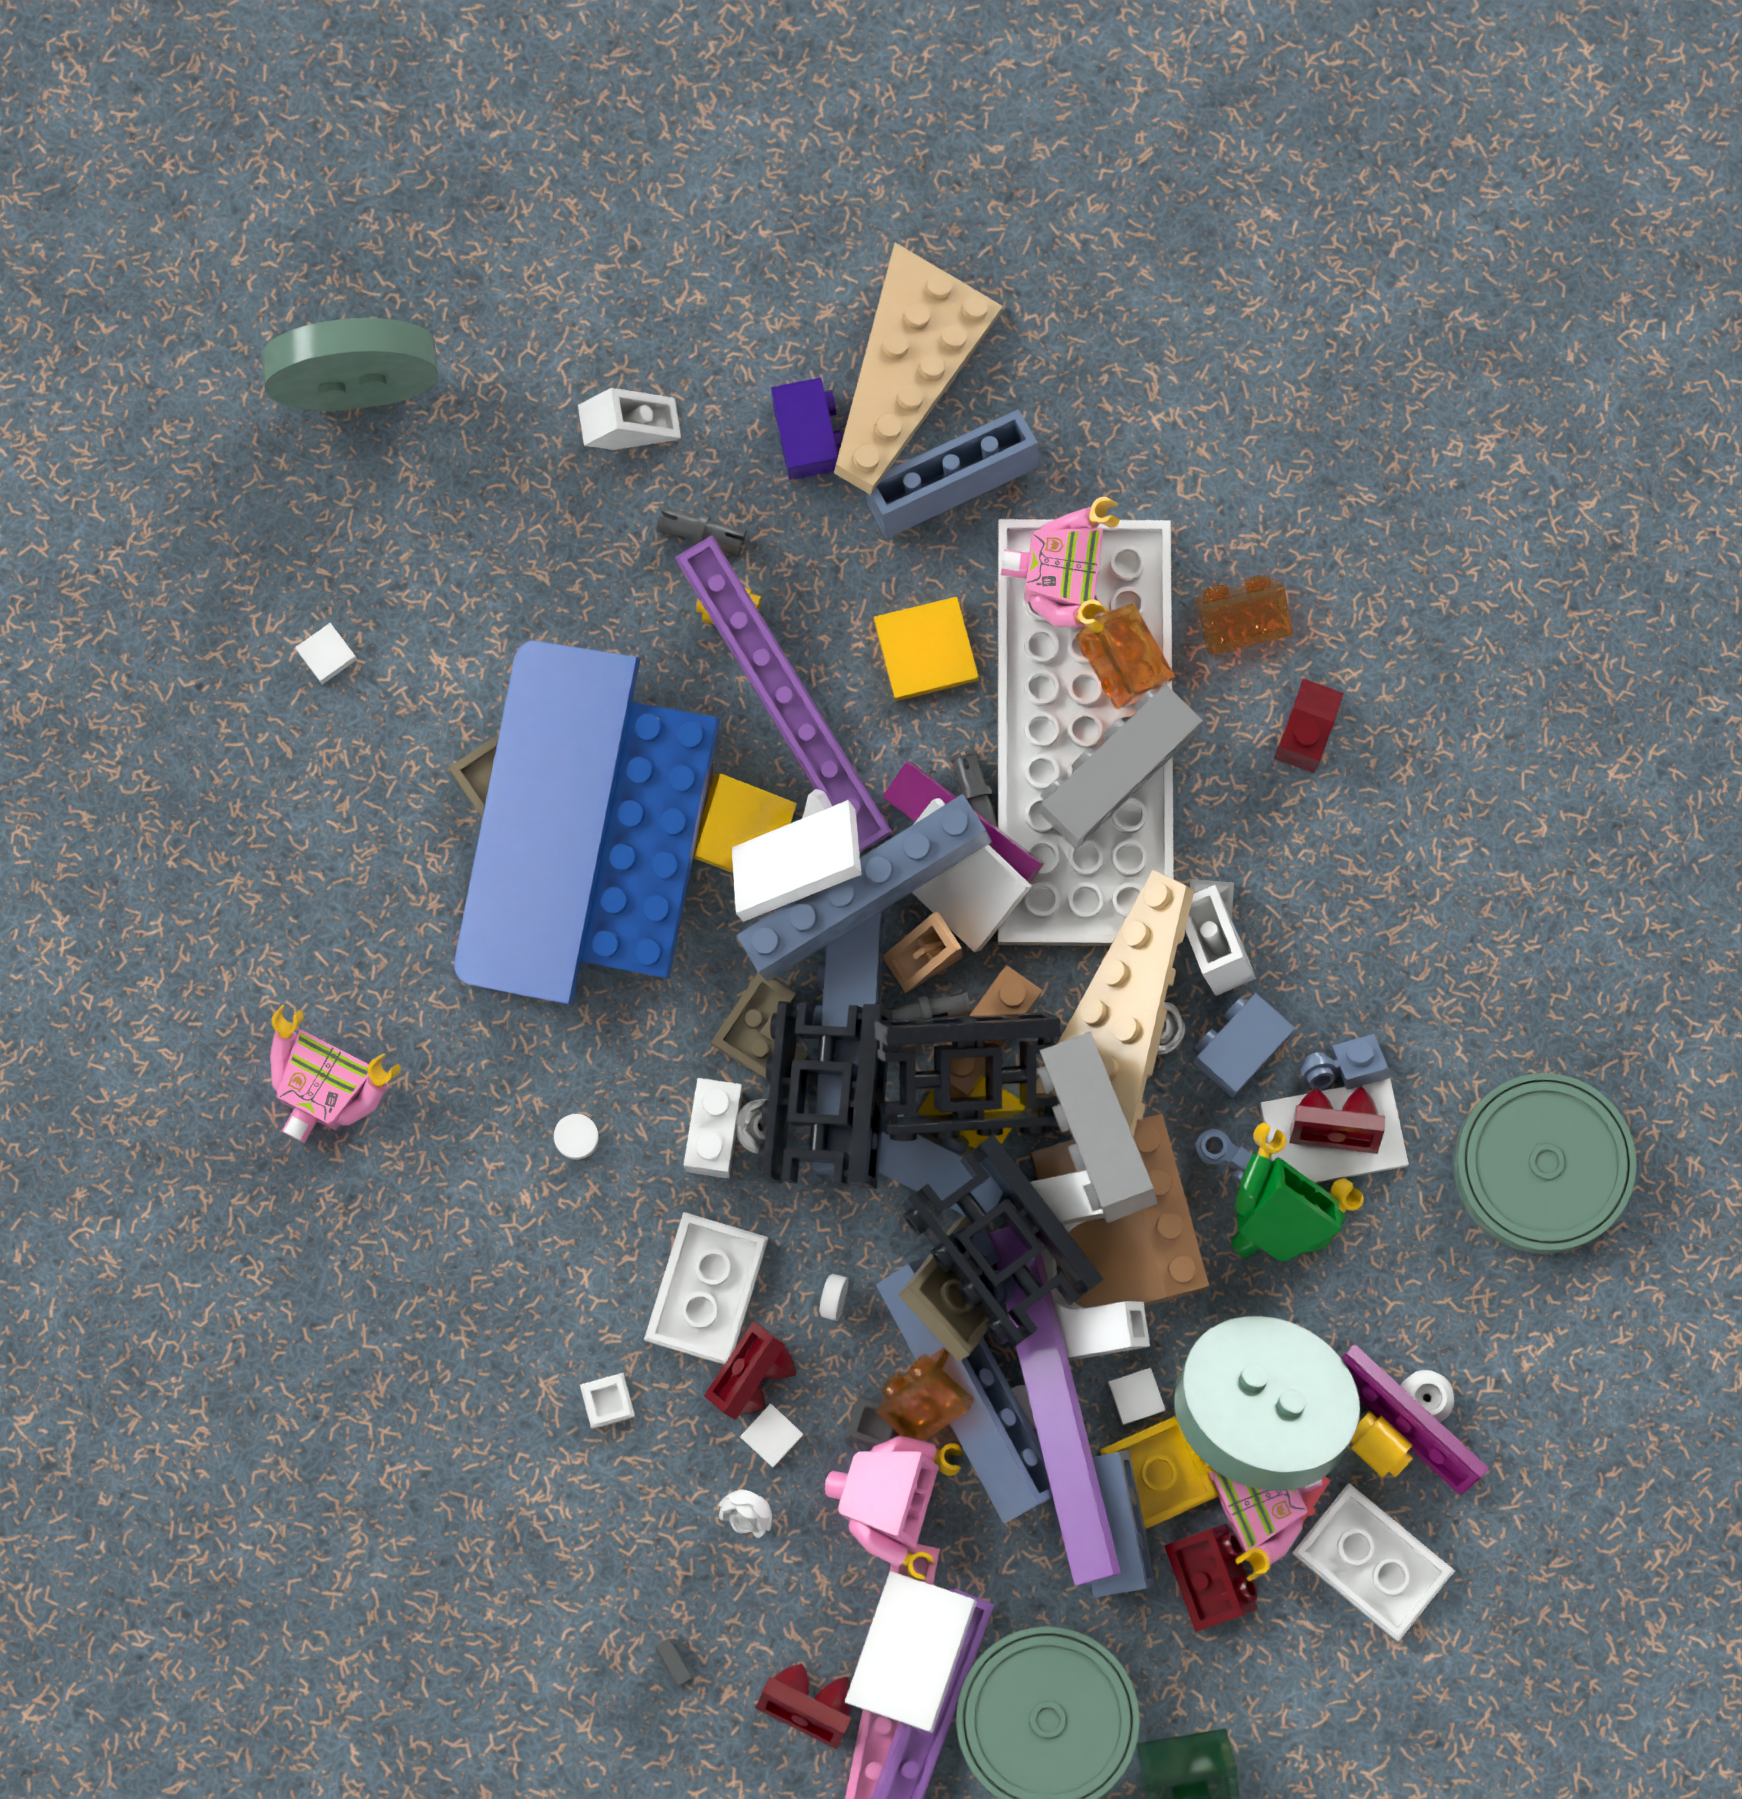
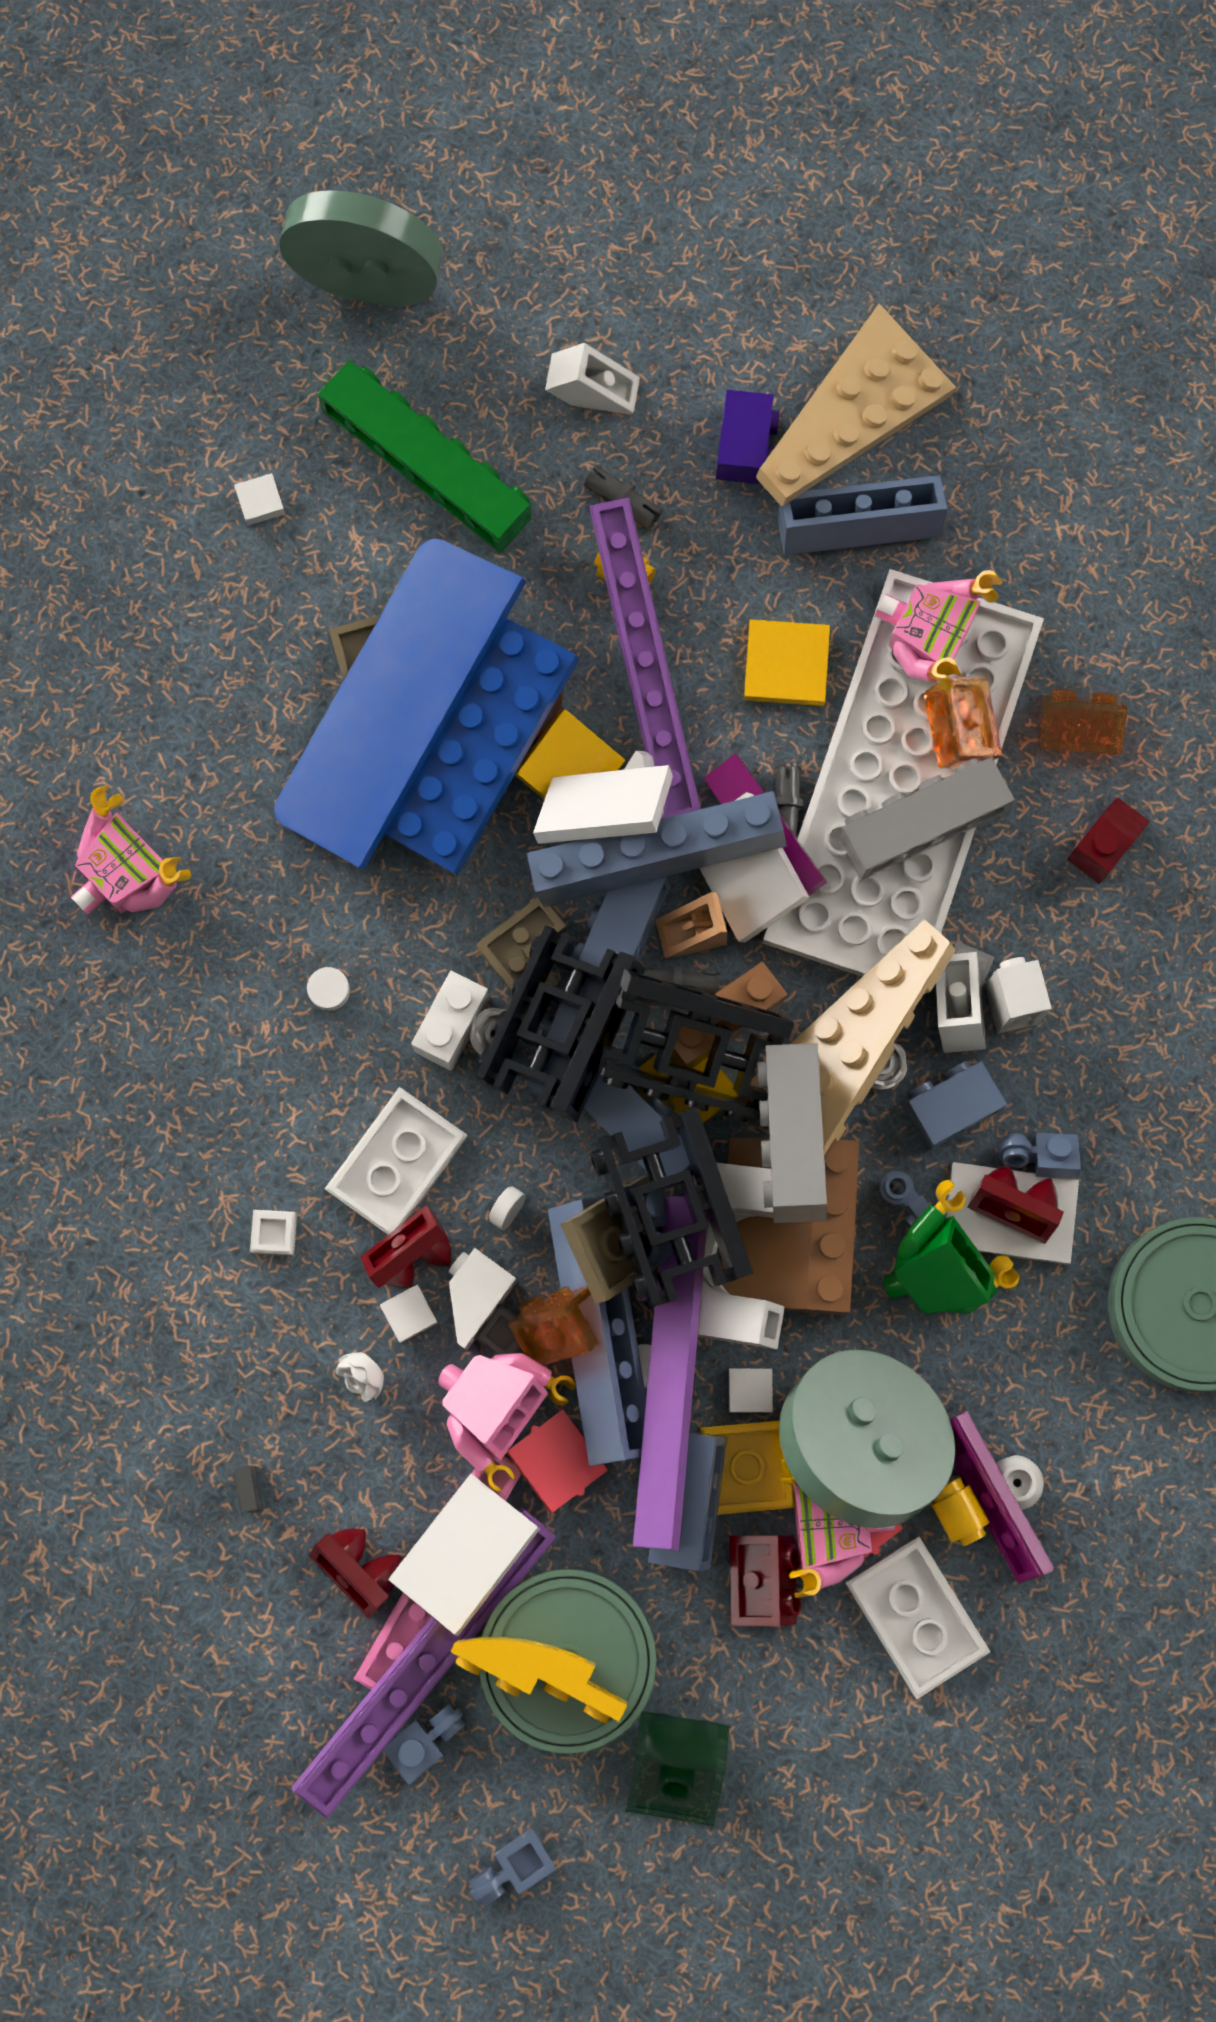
camera: 20 degrees right, 0 degrees up
(483, 553) = (425, 455): none -> green brick
(833, 1391) = (476, 1292): none -> white slope
(968, 1531) = (555, 1461): none -> coral piece
(1006, 1737) = (523, 1661): none -> yellow slope
(1269, 915) = (1017, 995): none -> white brick

